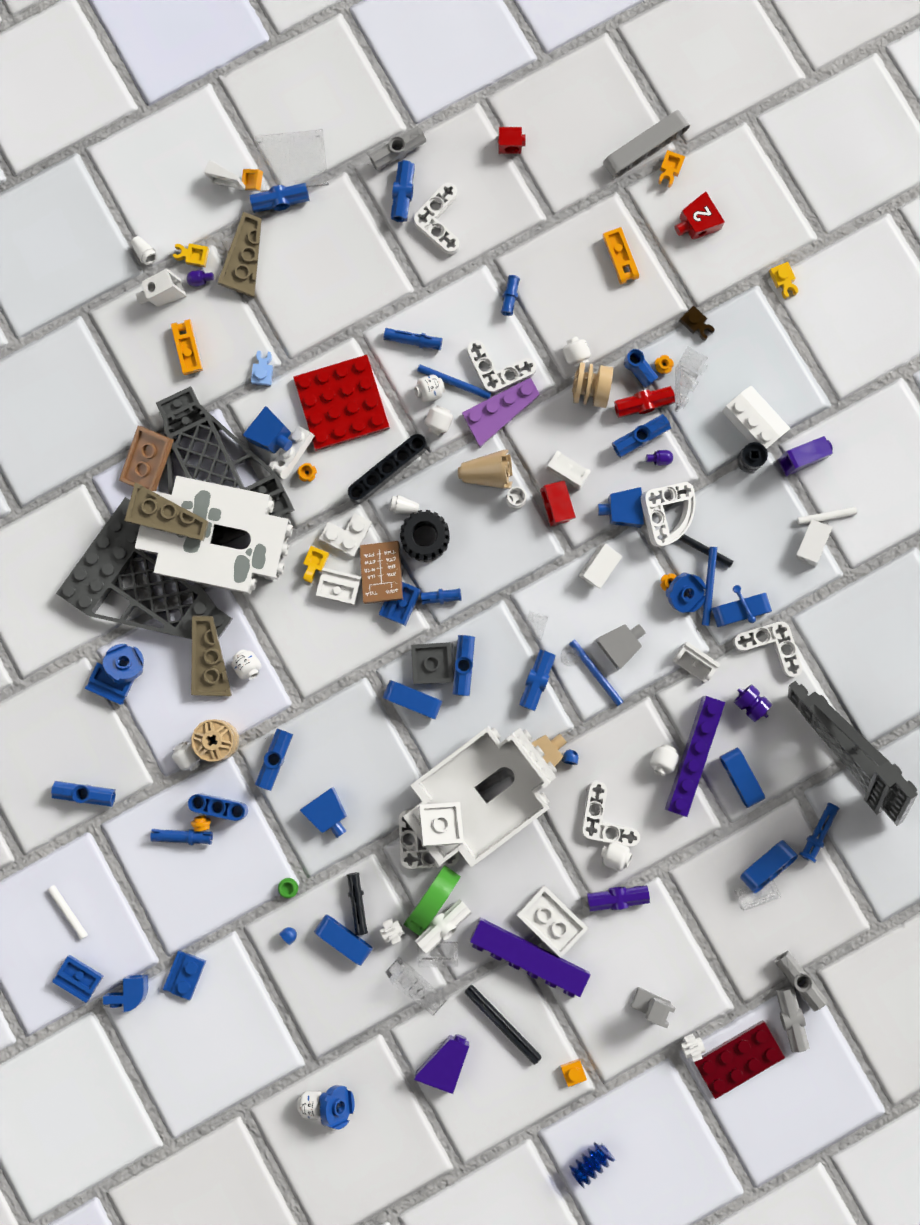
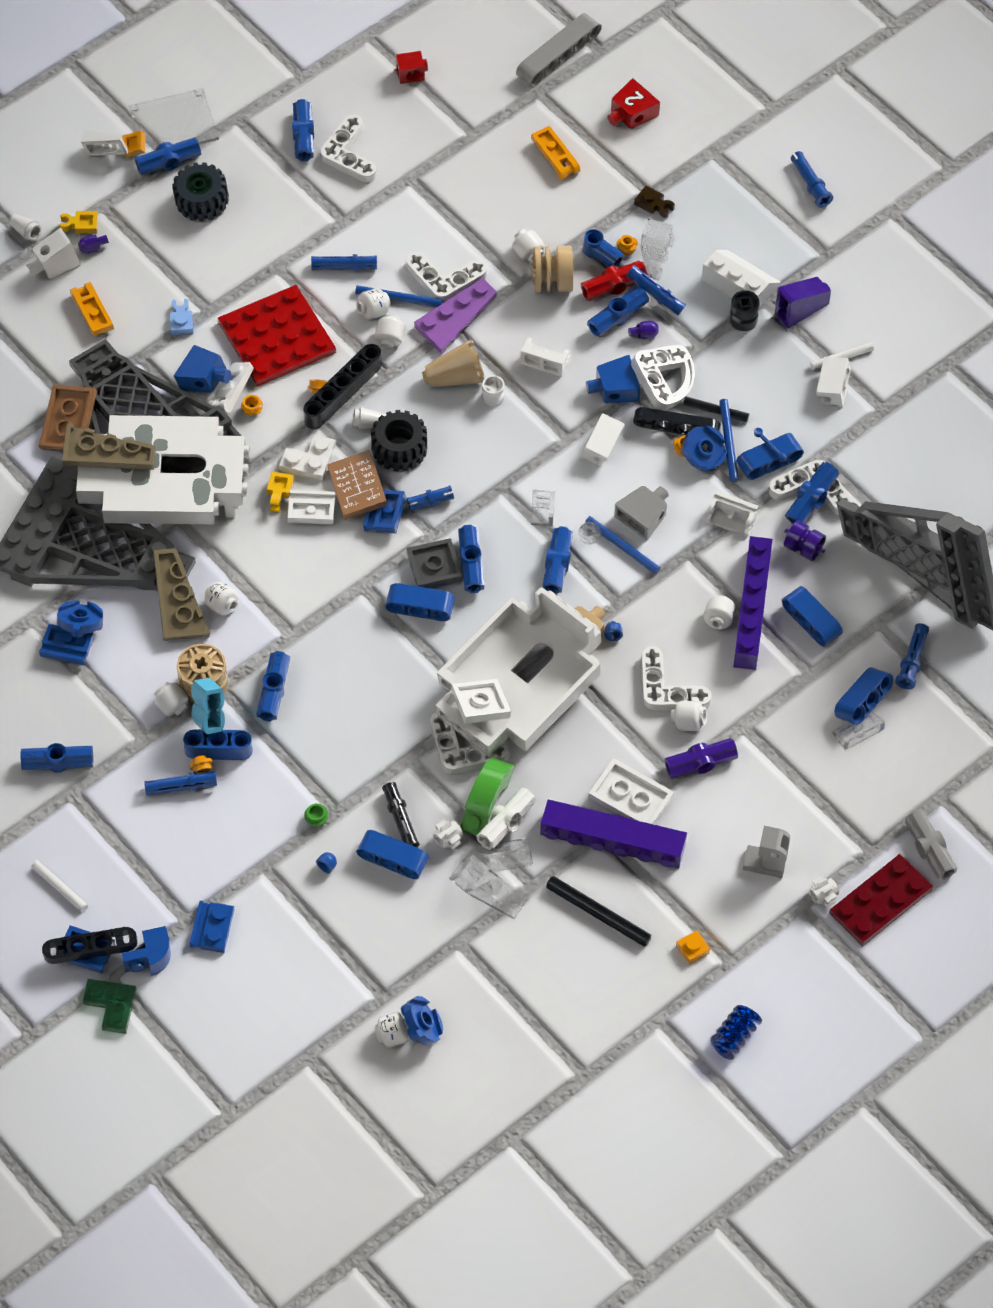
camera: 15 degrees left, 25 degrees down
(79, 985) = (89, 941): none -> black beam
(96, 1027) = (117, 1000): none -> clear green plate
(210, 782) = (208, 705): none -> medium azure brick
(242, 259) = (137, 221): dark tan wing -> none
(300, 243) = (200, 191): none -> black wheel
(326, 812) = (344, 729): blue torso -> none
(365, 463) = (316, 384): none -> light orange plate
(387, 154) = (288, 92): light grey piece -> none
(445, 1064) = (539, 961): dark purple slope -> none
(510, 295) = (443, 206): blue pin -> none
(557, 503) = (540, 389): red hinge -> none
(667, 559) = (655, 420): none -> black beam
(671, 166) = (590, 65): light orange plate -> none
(679, 422) = (658, 292): none -> blue pin
(769, 659) = (812, 493): none -> blue piece
(783, 276) = (739, 147): yellow plate -> none
(808, 990) = (941, 811): light grey piece -> none
(843, 334) = (815, 185): none -> blue pin

